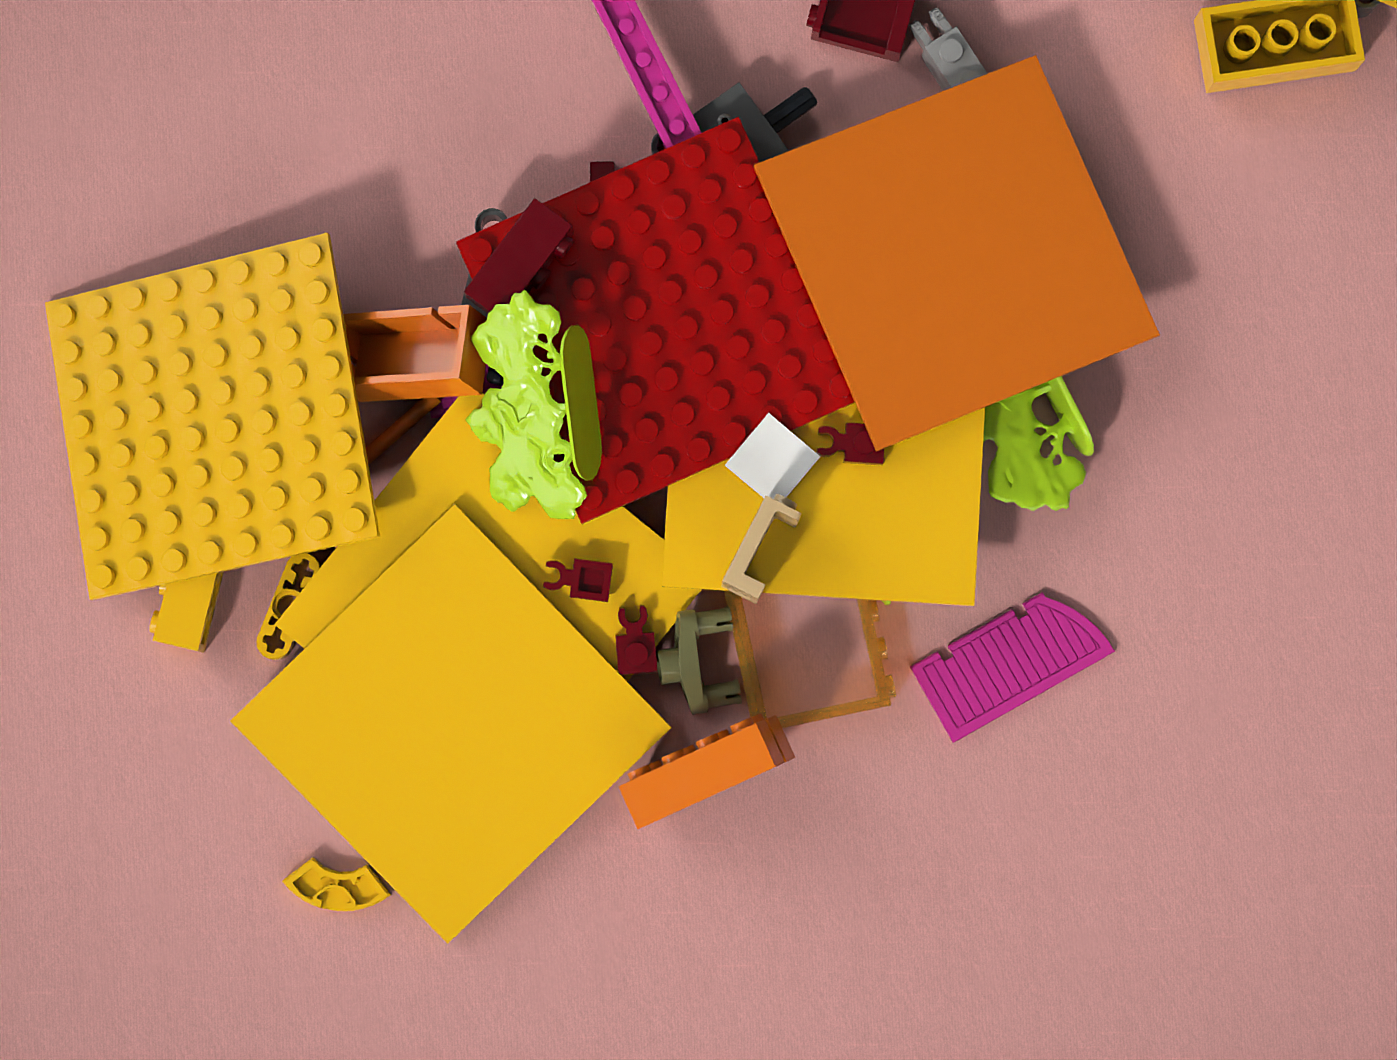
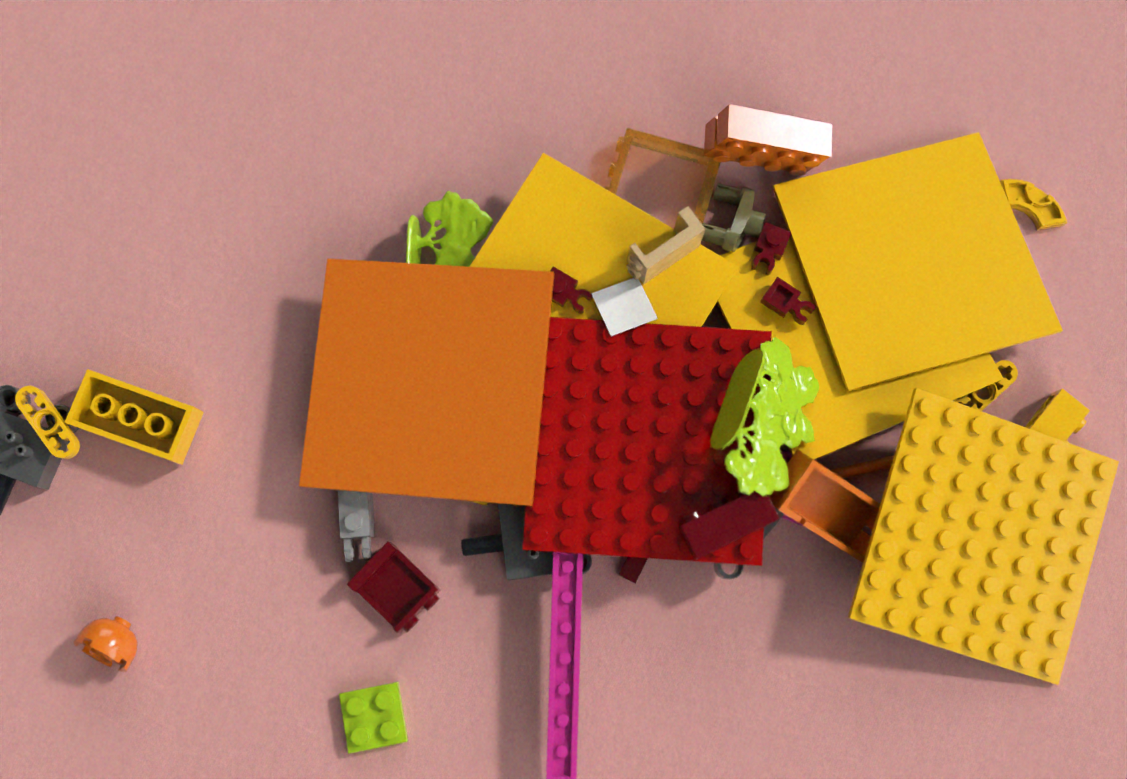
camera: 150 degrees left, 5 degrees down
(1008, 663) = (537, 124): dark pink piece -> none

